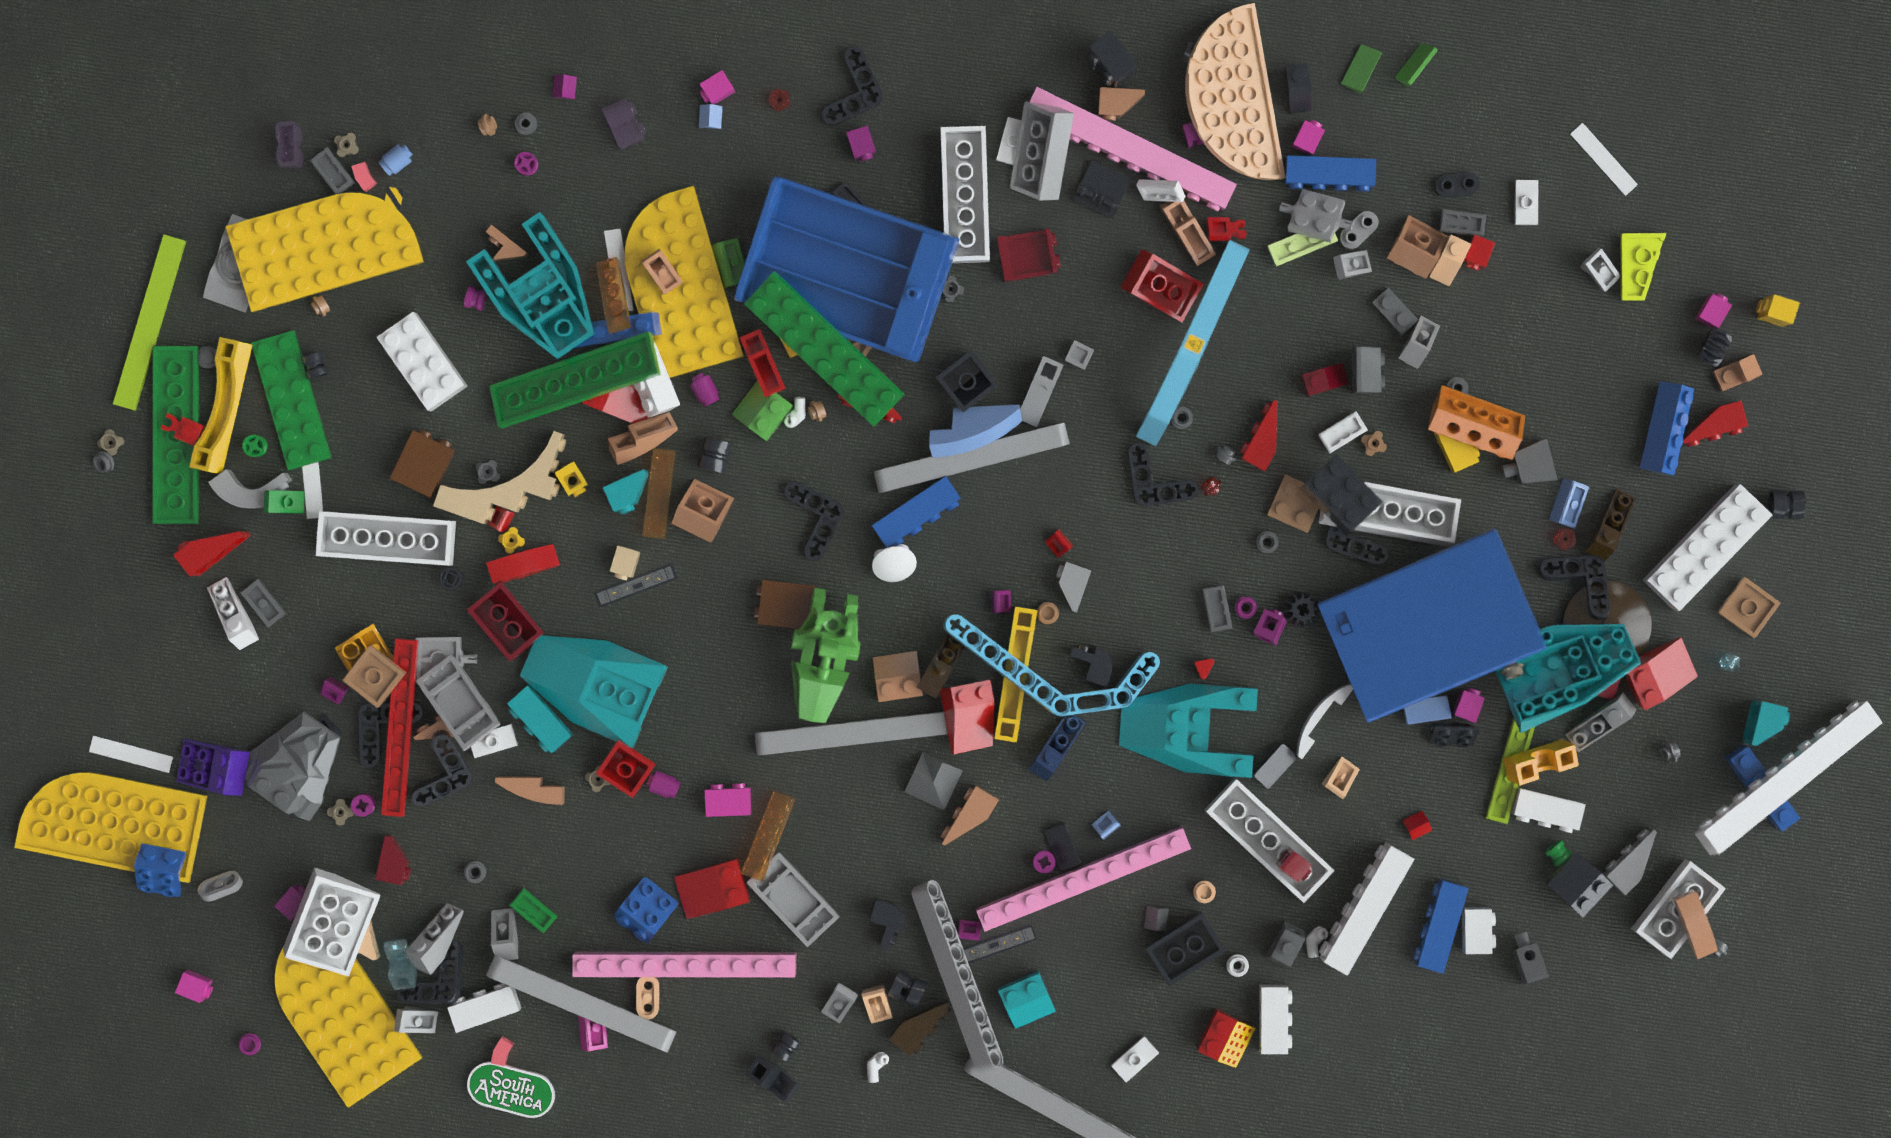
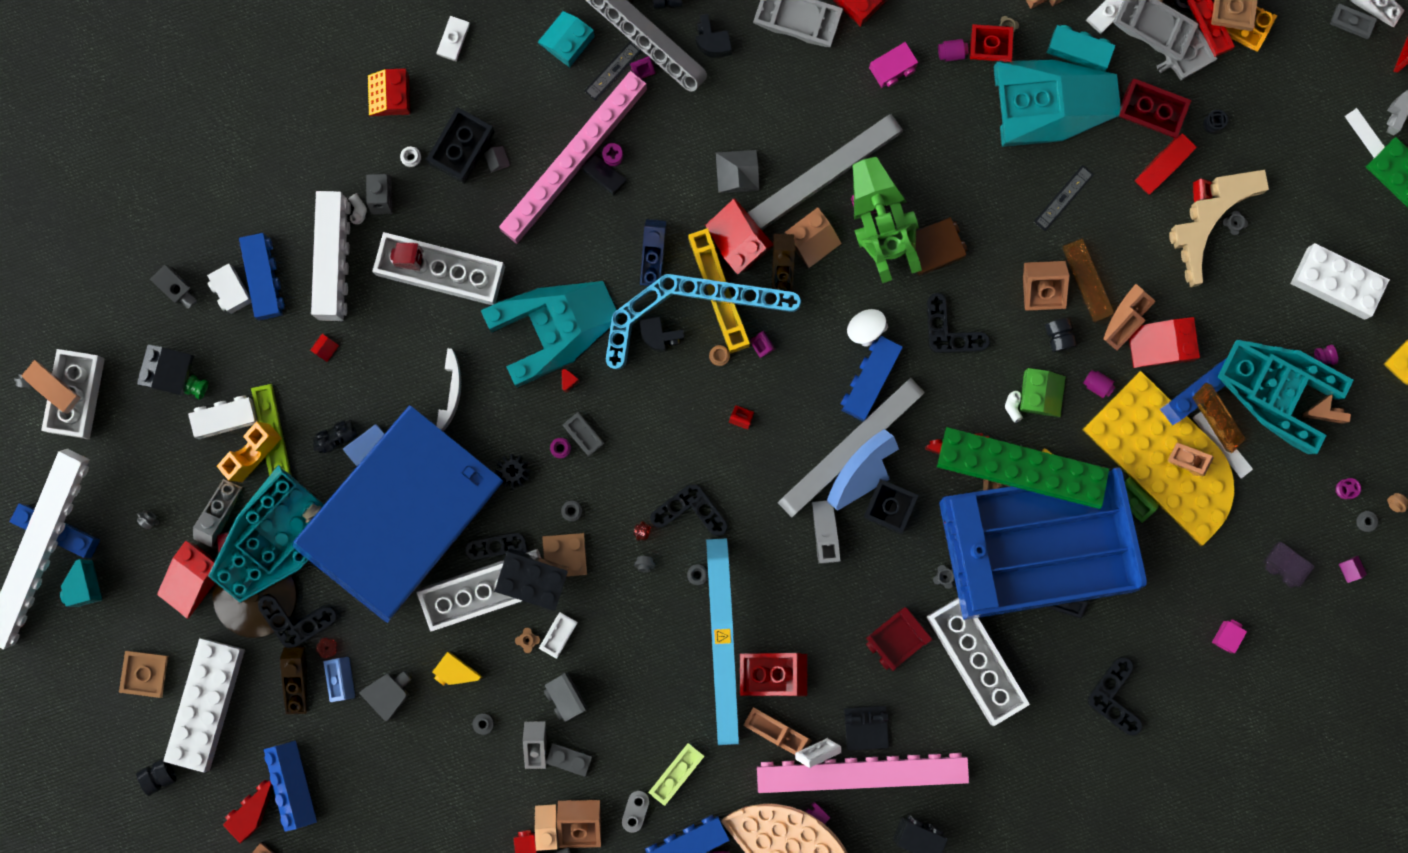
camera: 155 degrees right, 5 degrees down
(283, 501) = (1385, 108): green plate -> none
(385, 538) = (1287, 123): white brick -> none
(423, 463) = (1291, 201): reddish brown brick -> none
(512, 533) = (1183, 172): yellow plate -> none
(568, 471) = (1172, 250): yellow brick -> none
(575, 380) = (1210, 332): green plate -> none
(624, 562) = (1084, 209): tan brick -> none
(626, 492) = (1115, 265): teal slope -> none
(657, 393) = (1147, 366): white brick -> none
(710, 116) = (1220, 610): light blue slope -> none
(762, 363) = (1065, 430): red slope -> none
(768, 836) = (846, 54): clear orange plate -> none
(773, 99) = (1166, 655): clear red plate -> none
(816, 411) = (998, 416): medium nougat plate -> none
(861, 144) = (1085, 656): magenta brick -> none
(976, 810) = (690, 163): nougat slope -> none
(1009, 141) = (962, 727): white plate -> none
(1041, 151) = (935, 731): light grey slope -> none
(1073, 583) = (712, 390): light grey slope -> none
(1079, 355) = (809, 580): light grey plate -> none
(1106, 825) = (578, 211): light blue slope -> none
(1117, 101) = (894, 807): nougat slope -> none
(1204, 891) = (469, 200): light nougat plate -> none
(1222, 229) = (748, 749): red plate -> none
(1262, 629) = (536, 437): magenta brick -> none
(1263, 443) = (618, 586): red slope -> none
(1274, 765) = (467, 333): slope -> none
(1274, 1019) = (356, 129): white brick -> none
(1316, 215) = (677, 803): light grey plate -> none
(1324, 379) = (596, 670): dark red slope -> none
(1341, 777) = (407, 351): light nougat slope -> none
(1352, 264) = (625, 779): light grey slope -> none
(1468, 705) = (334, 467): dark pink brick -> none
(1478, 415) = (467, 706): orange brick -> none
(1630, 867) = (131, 407): light grey slope -> none
(1729, 662) = (136, 620): clear light blue plate -> none

